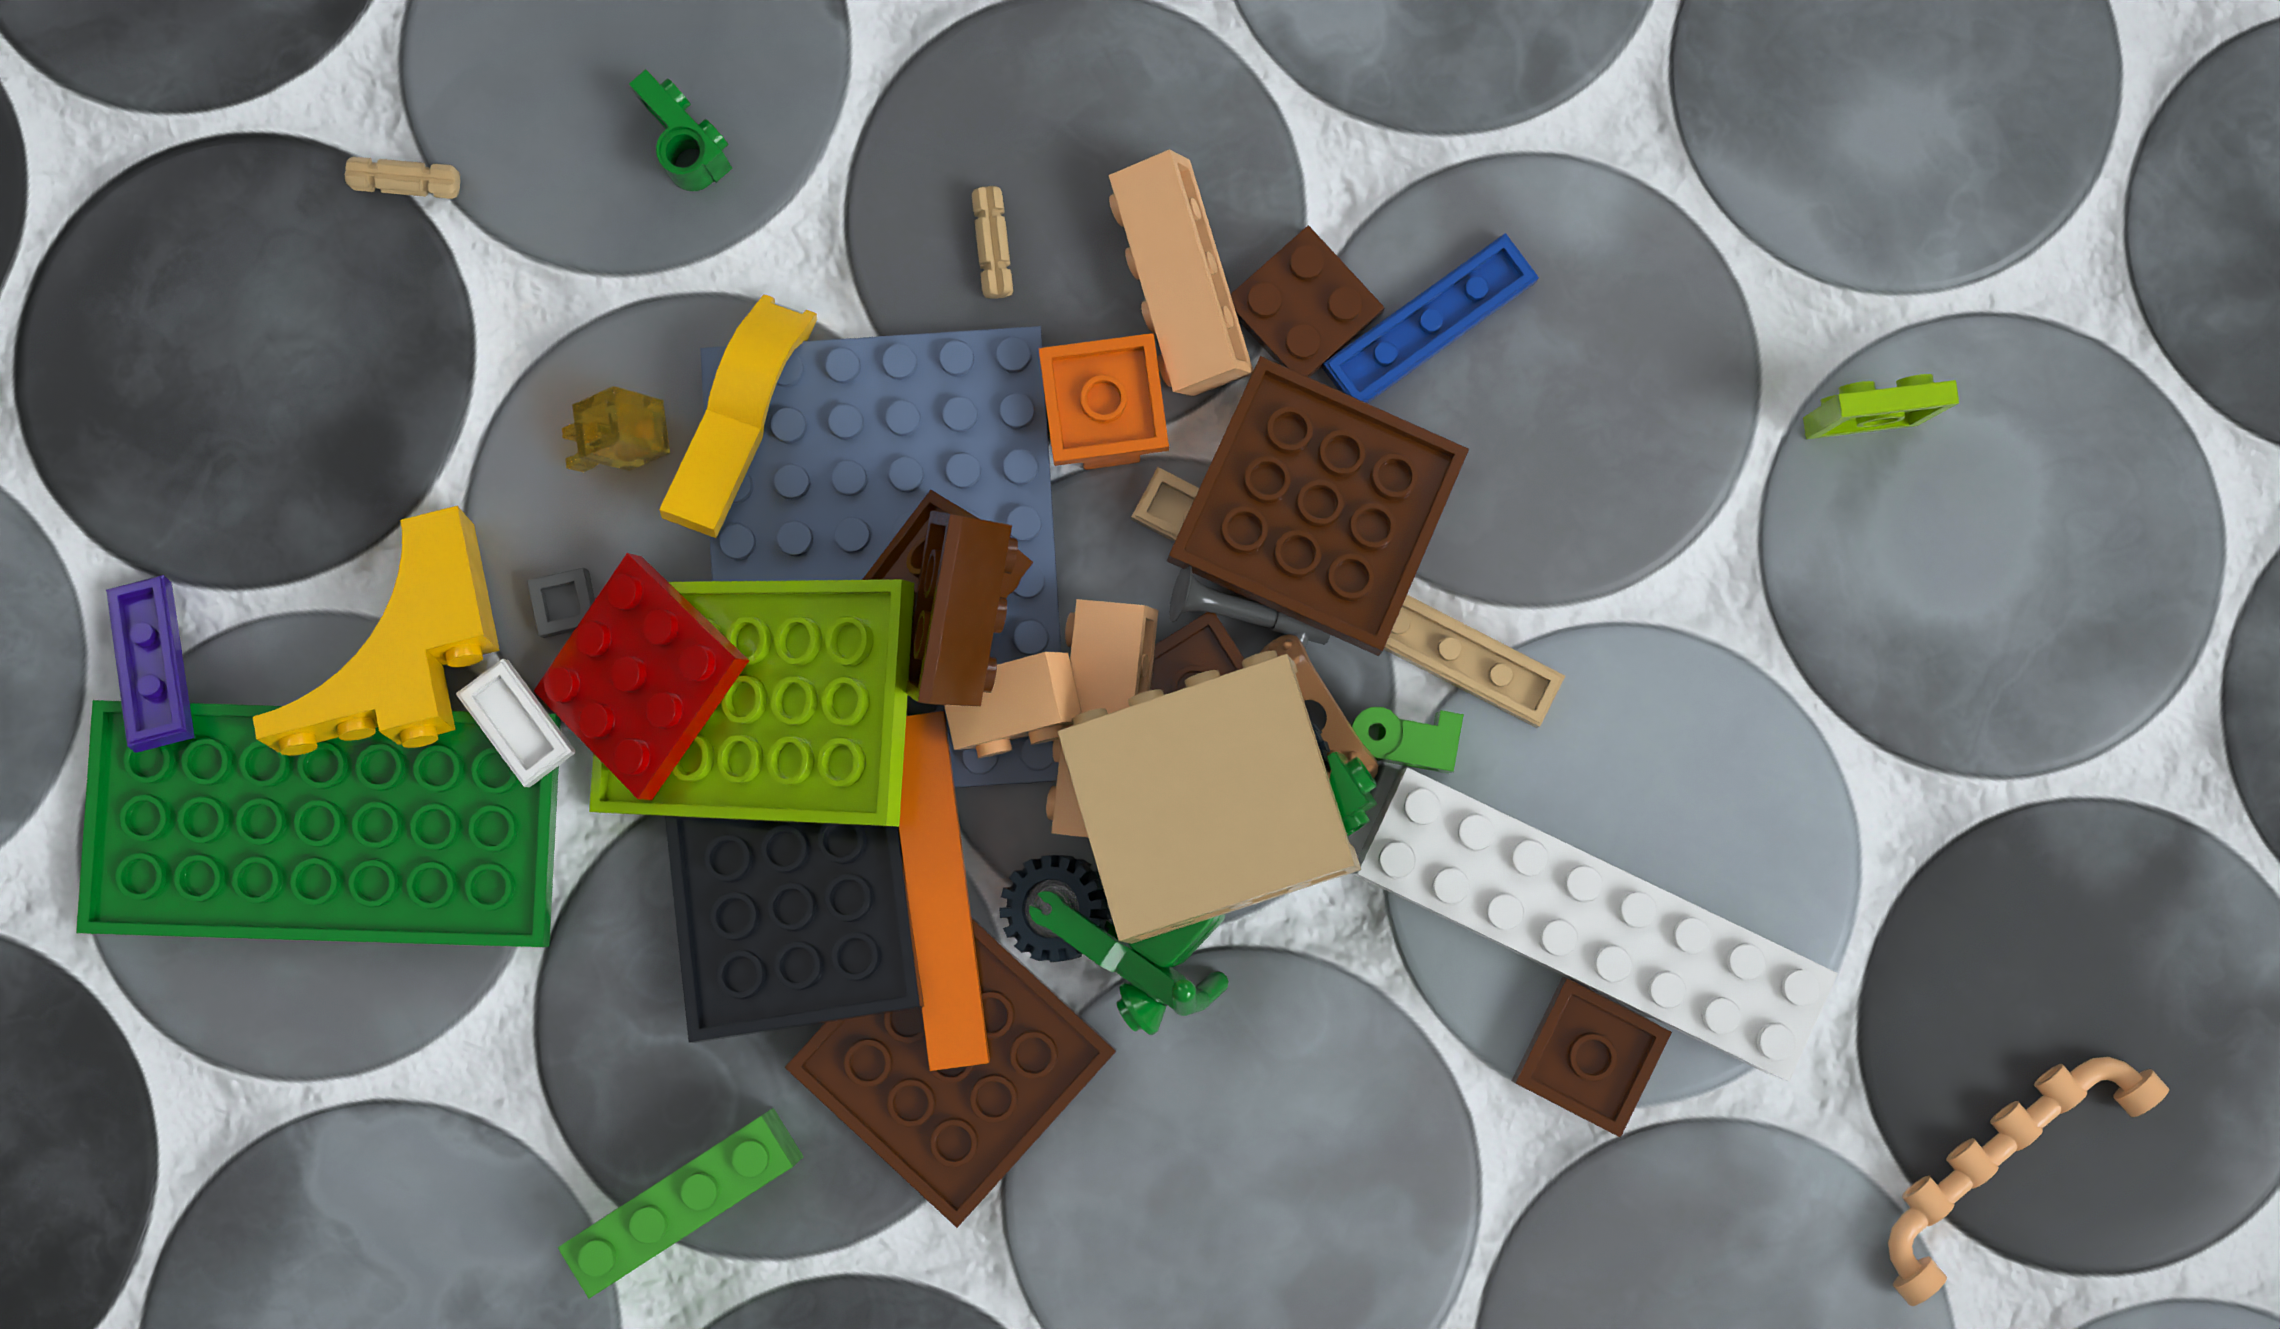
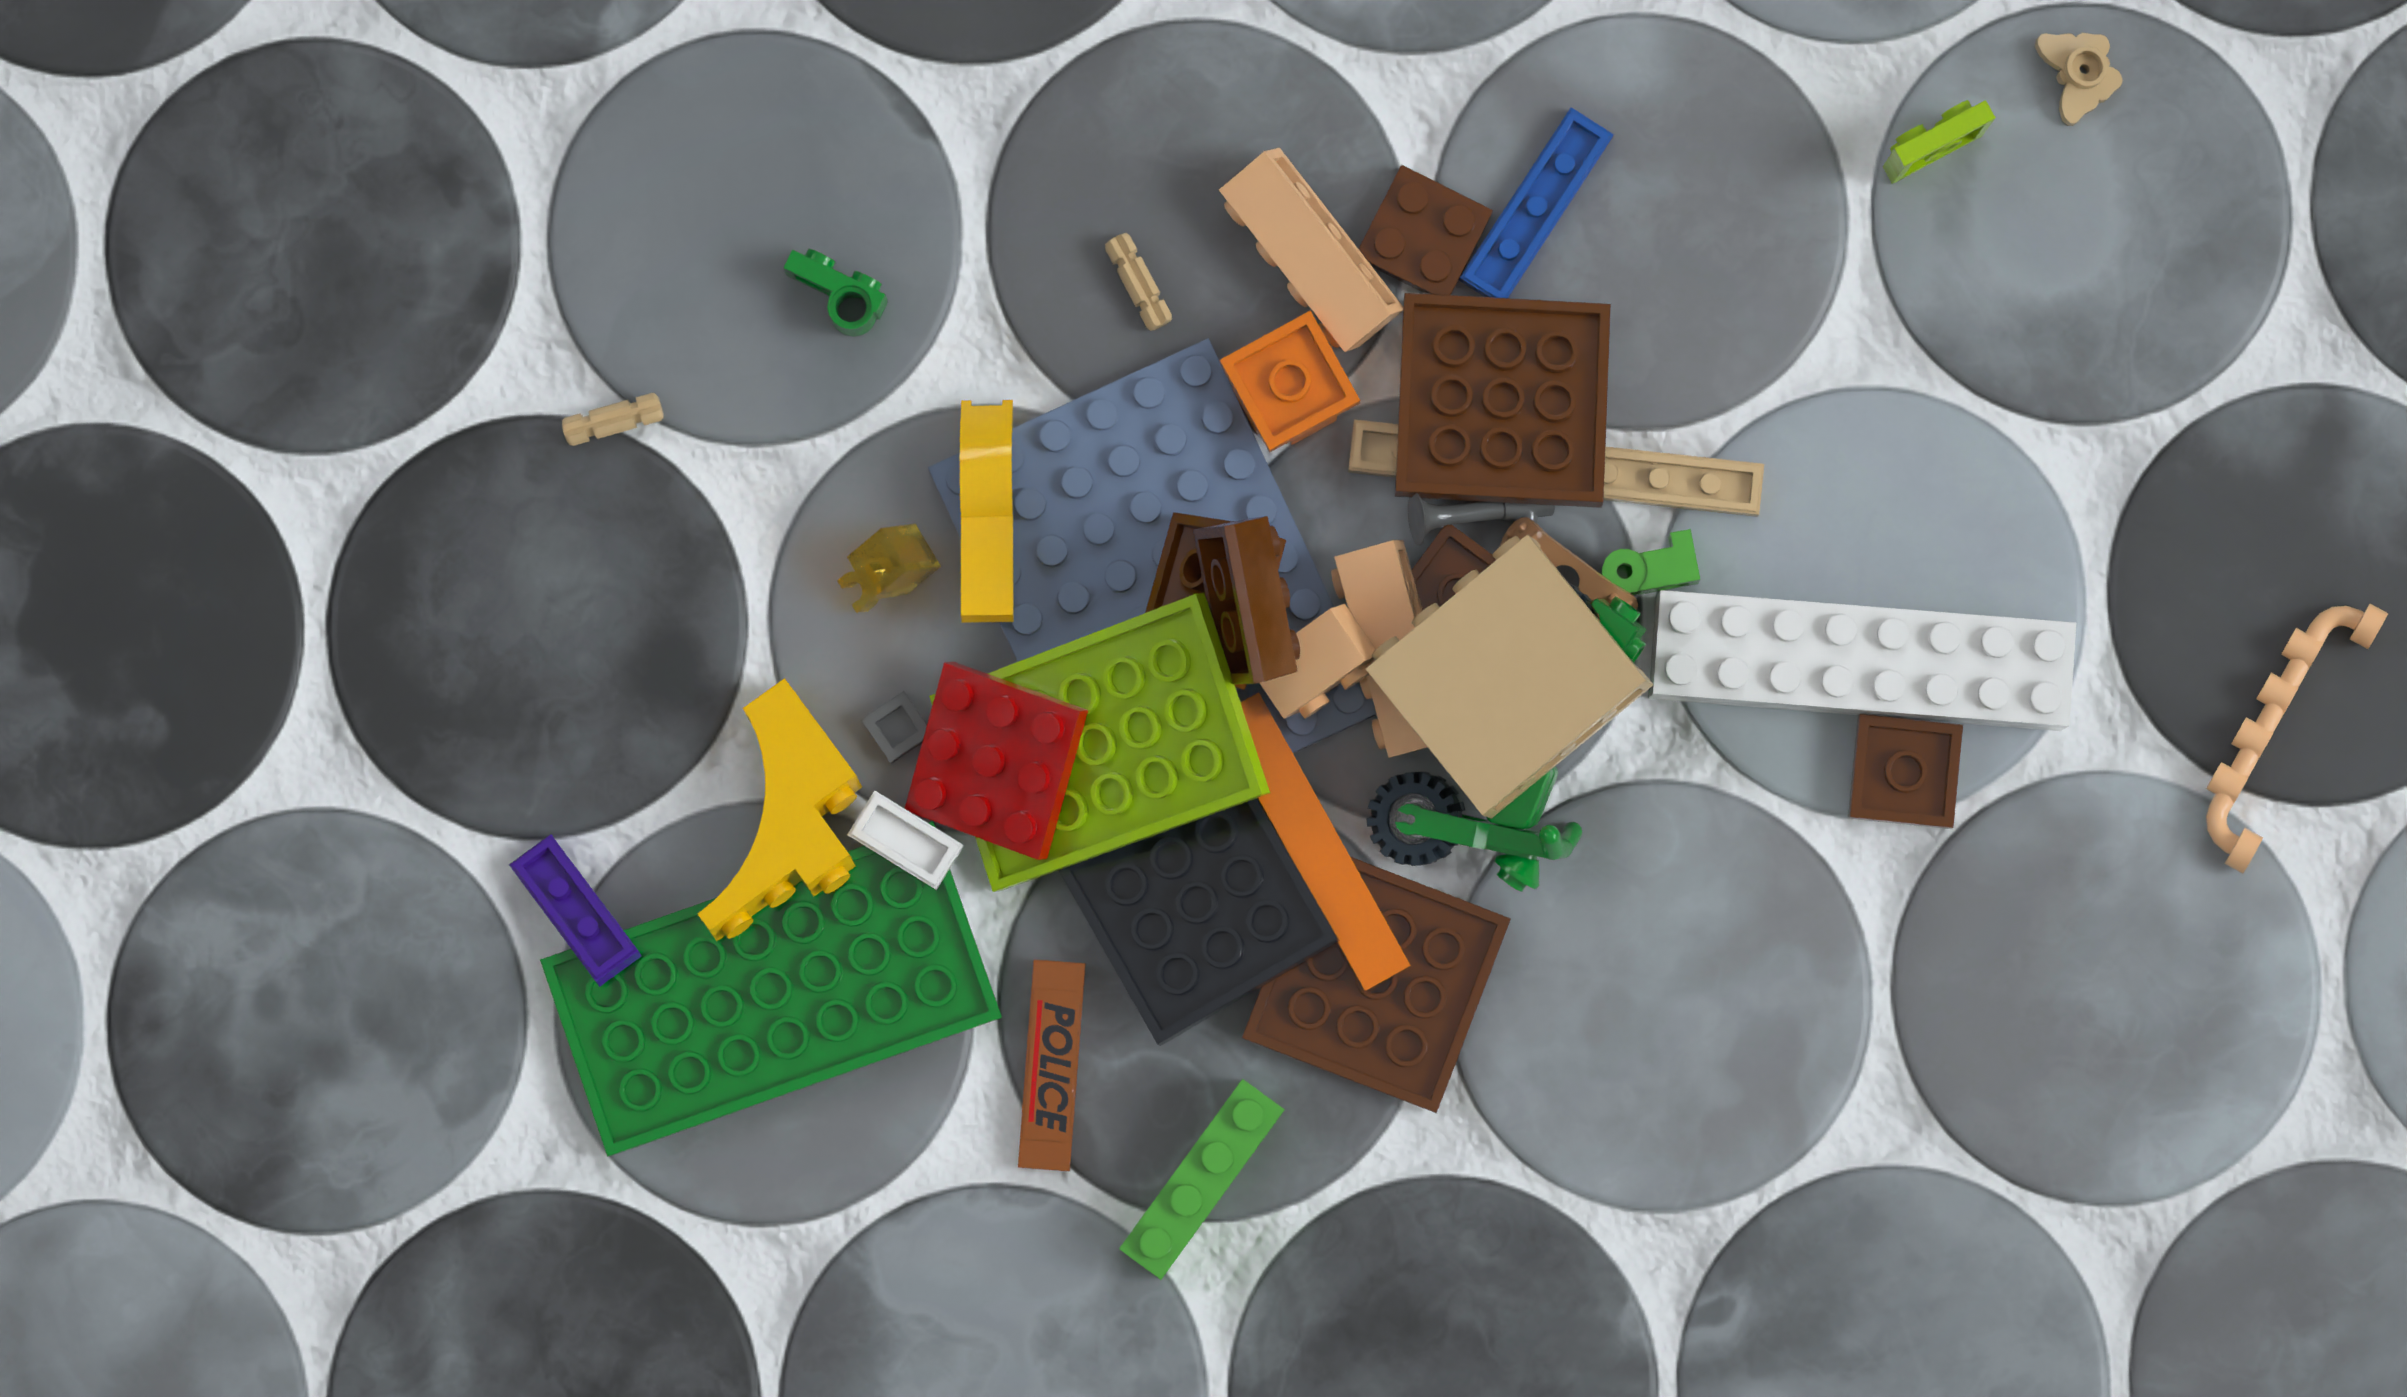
camera: 20 degrees left, 0 degrees up
(579, 1017) = (1051, 1065): none -> dark orange tile
(2040, 377) = (2080, 90): none -> tan animal

